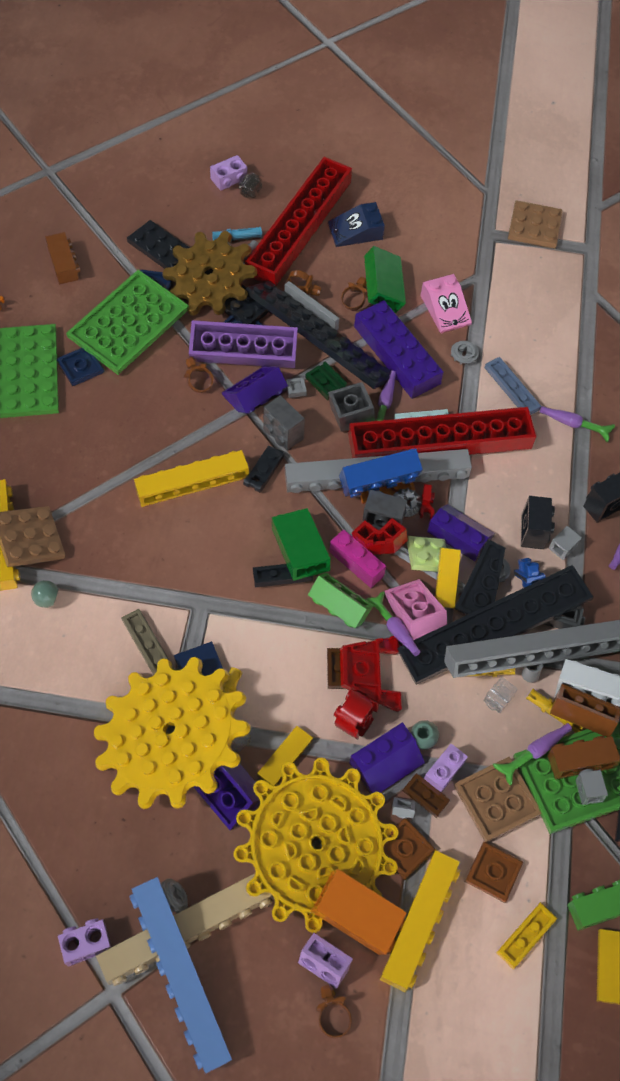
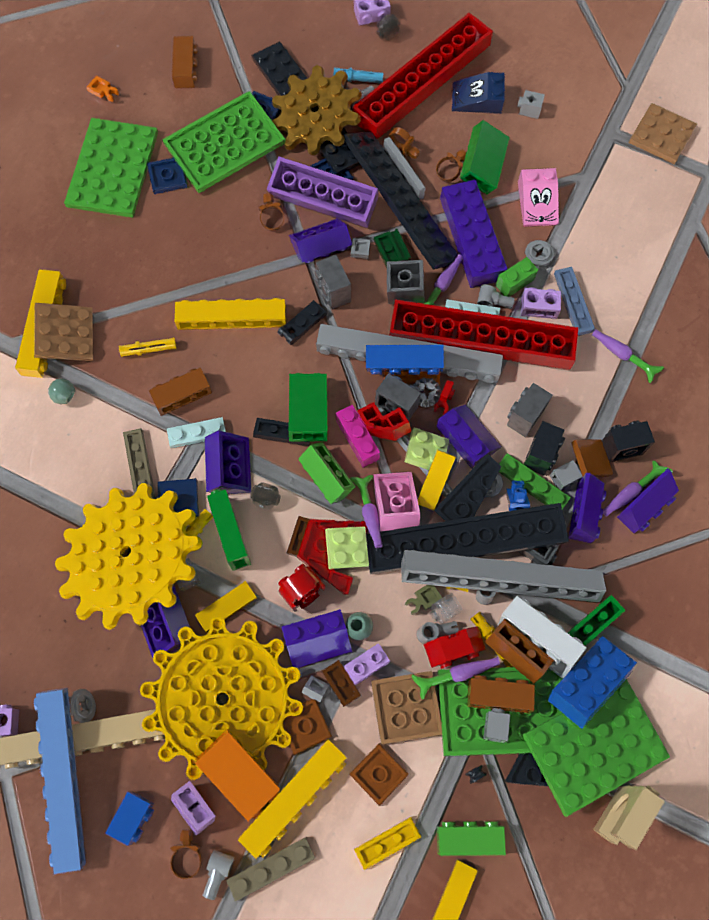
camera: 20 degrees right, 10 degrees up
(139, 522) = (125, 350): none -> yellow pin
(166, 562) = (180, 391): none -> dark orange brick
(195, 598) = (193, 432): none -> light aqua plate
(238, 618) = (227, 463): none -> dark purple slope
(263, 992) = (130, 818): none -> blue brick
(265, 679) = (228, 529): none -> green brick
(287, 638) = (265, 495): none -> clear smoke head
(371, 1013) = (219, 868): none -> light grey pin
(386, 664) = (346, 547): none -> yellowish green plate
(408, 224) = (531, 104): none -> light grey brick
(422, 999) = (270, 869): none -> dark tan plate
(433, 401) = (489, 297): none -> light grey pin
(453, 378) = (516, 277): none -> bright green brick
(476, 690) = (425, 597): none -> olive plate
(483, 395) = (541, 307): none -> lavender brick
(499, 719) = (436, 631): none -> light grey pin
(509, 491) = (528, 409): none -> flat silver brick
(519, 729) = (454, 646): none -> red brick
(547, 561) = (533, 483): none -> bright green plate
(582, 520) = (592, 457): none -> dark orange tile
(586, 841) = (476, 774): none -> black bush
(595, 566) = (587, 509): none -> dark purple slope

